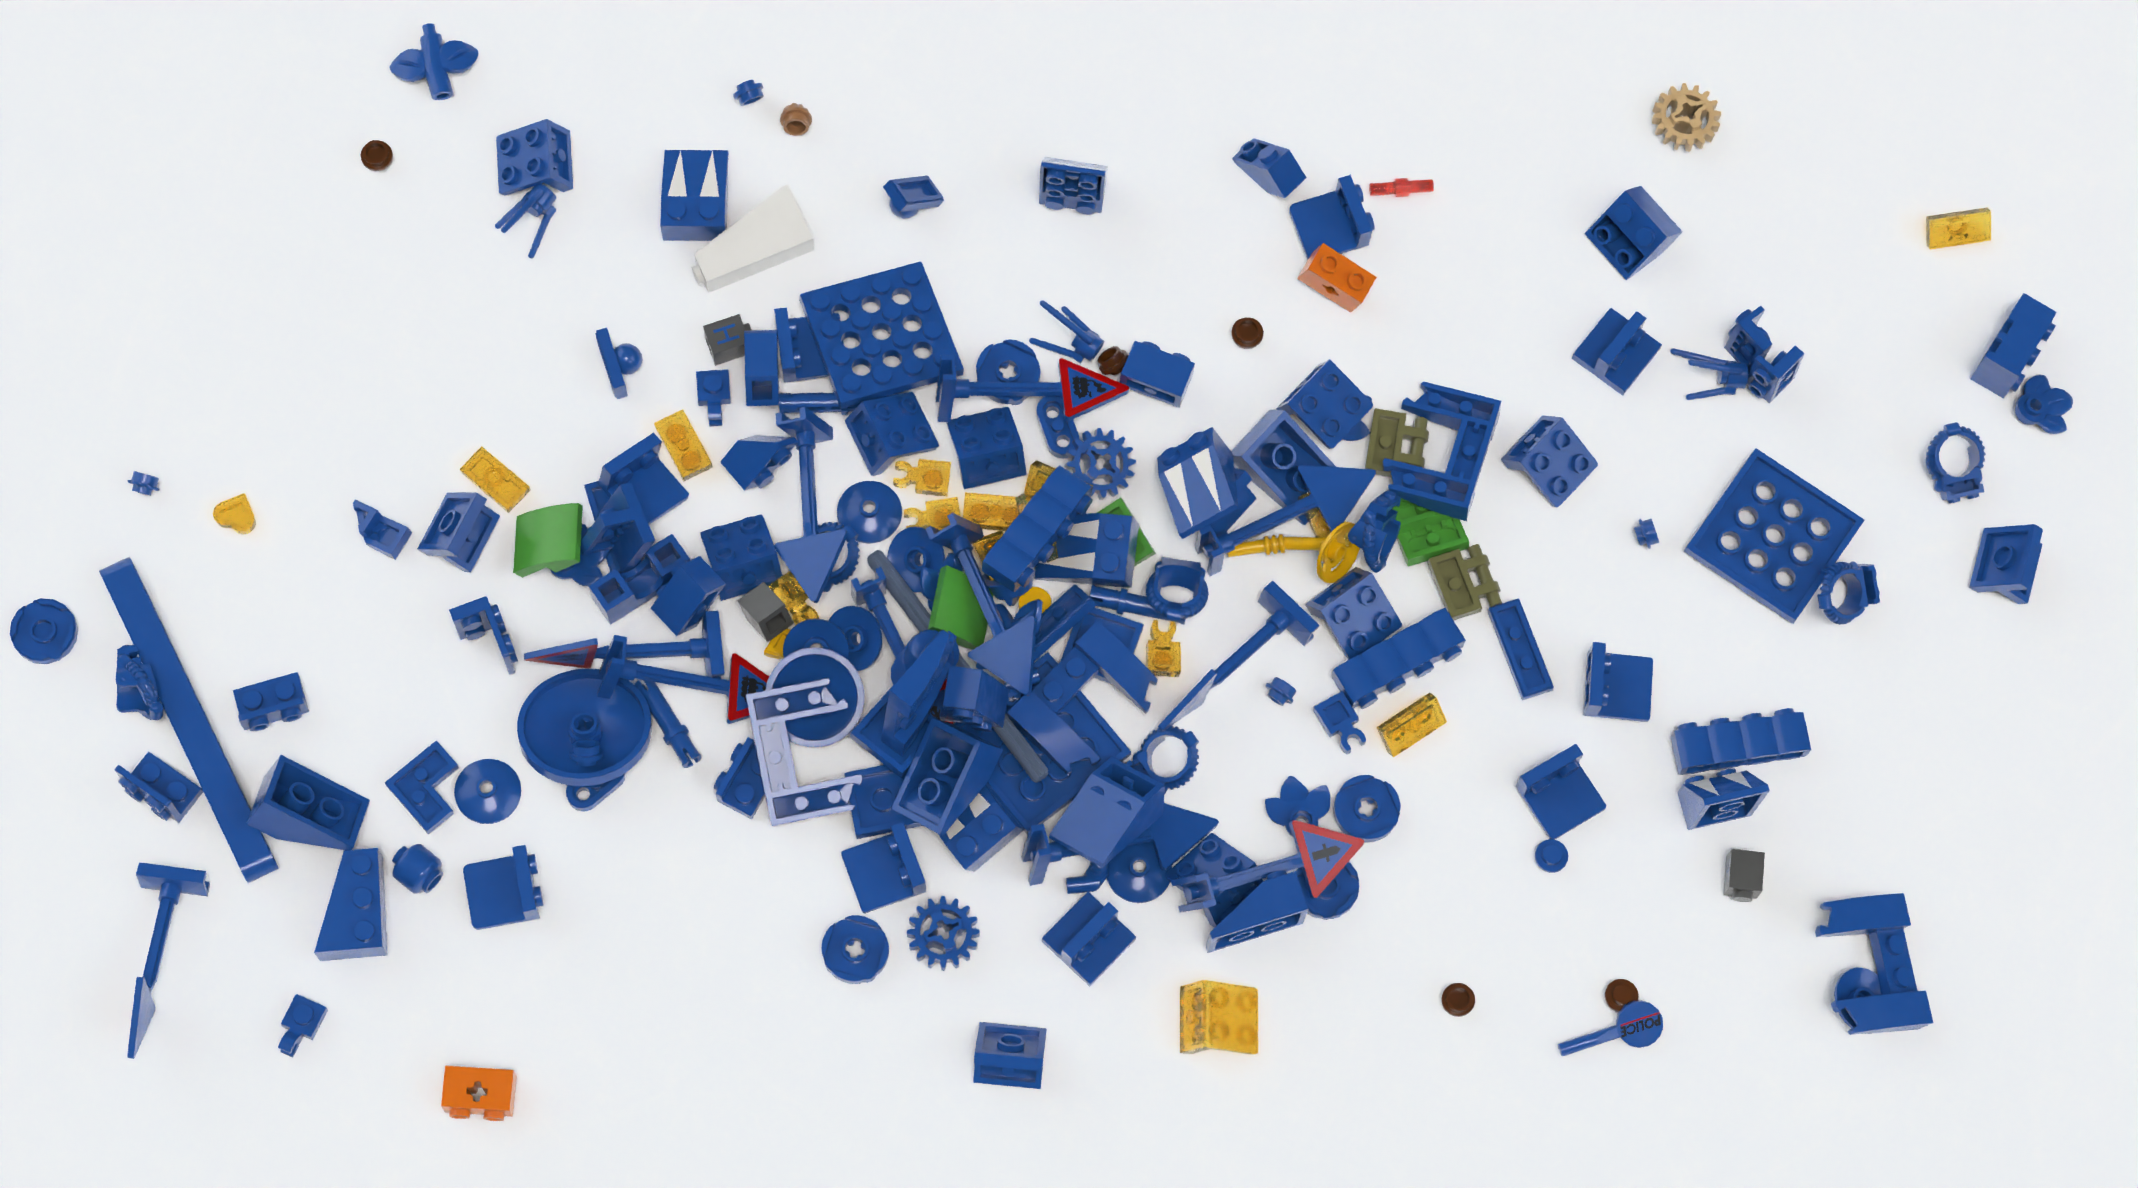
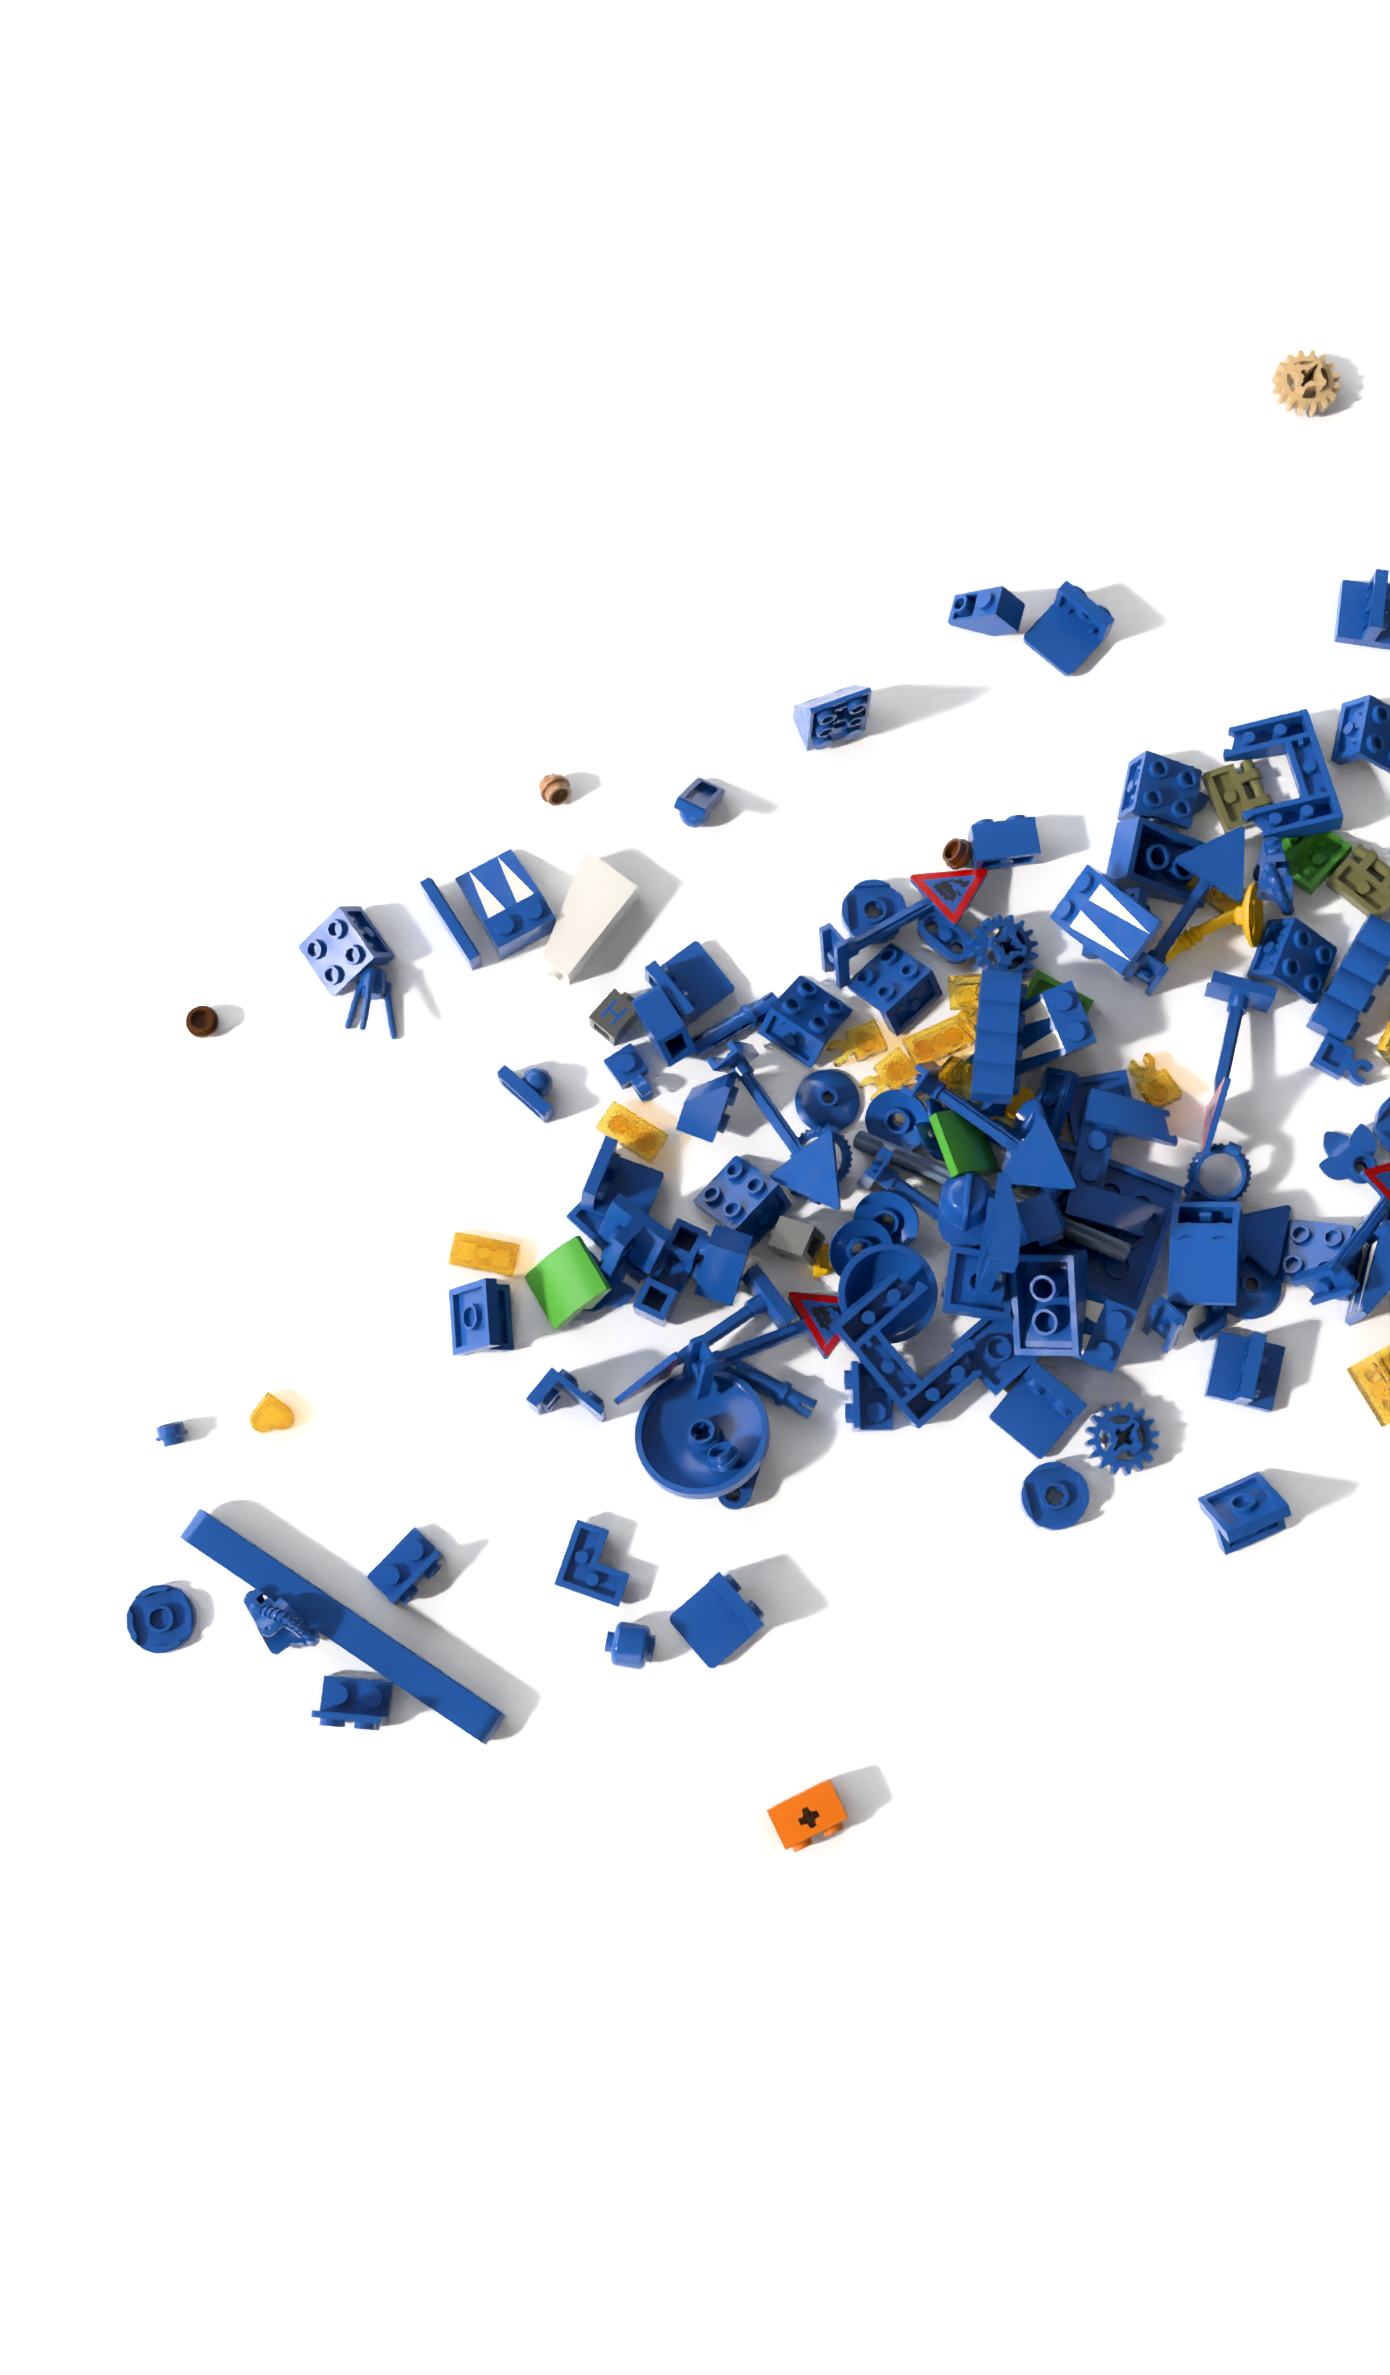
camera: 25 degrees left, 5 degrees up
(171, 883) = (419, 1785): blue piece -> none
(301, 1020) = (609, 1839): blue plate -> none
(307, 807) = (500, 1647): blue slope -> none
(356, 909) = (599, 1713): blue wedge -> none
(379, 531) = (410, 1358): blue slope -> none
(434, 62) = (203, 910): blue plant -> none
(491, 806) = (651, 1555): blue dish -> none
(636, 185) = (451, 923): none -> blue tile
(748, 92) = (499, 787): blue plate -> none
(793, 597) = (814, 1213): clear yellow plate -> none
(880, 289) = (726, 981): blue piece -> none
(1086, 342) = (924, 850): blue plant -> none
(1128, 602) = (1119, 1051): blue pin -> none
(1177, 573) = (1132, 1006): blue piece -> none
(1247, 333) = (1054, 767): reddish brown plate -> none
(1280, 691) = (1274, 1063): blue plate -> none
(1336, 277) = (1104, 677): orange brick -> none
(1401, 187) = (1106, 570): clear red bar -> none
(1633, 231) = (1323, 505): blue slope -> none

